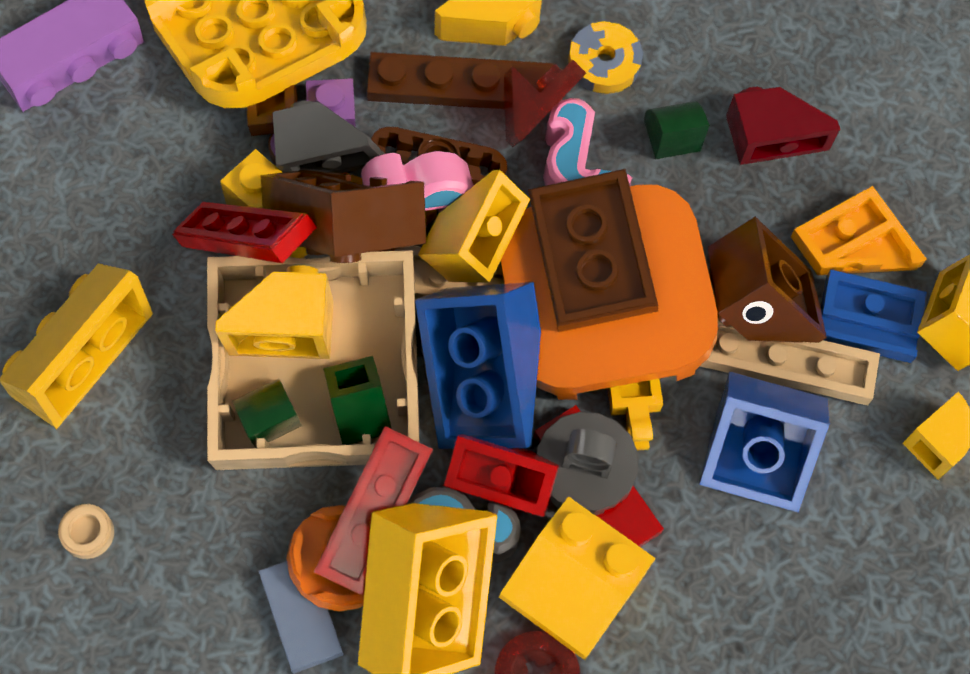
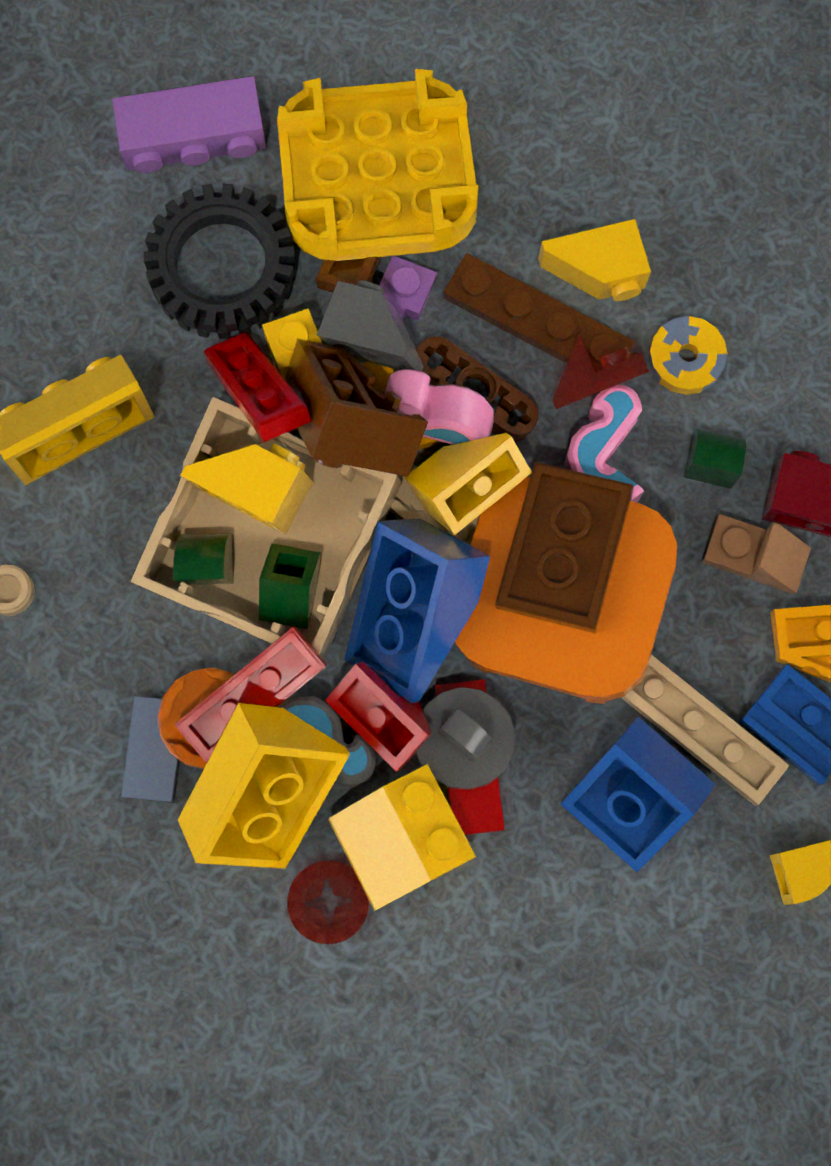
camera: 30 degrees right, 10 degrees up
(137, 102) = (214, 209): none -> black tyre
(637, 402) = (538, 704): yellow plate -> none
(761, 191) = (761, 555): none -> medium nougat slope
(764, 287) = (712, 654): reddish brown slope -> none

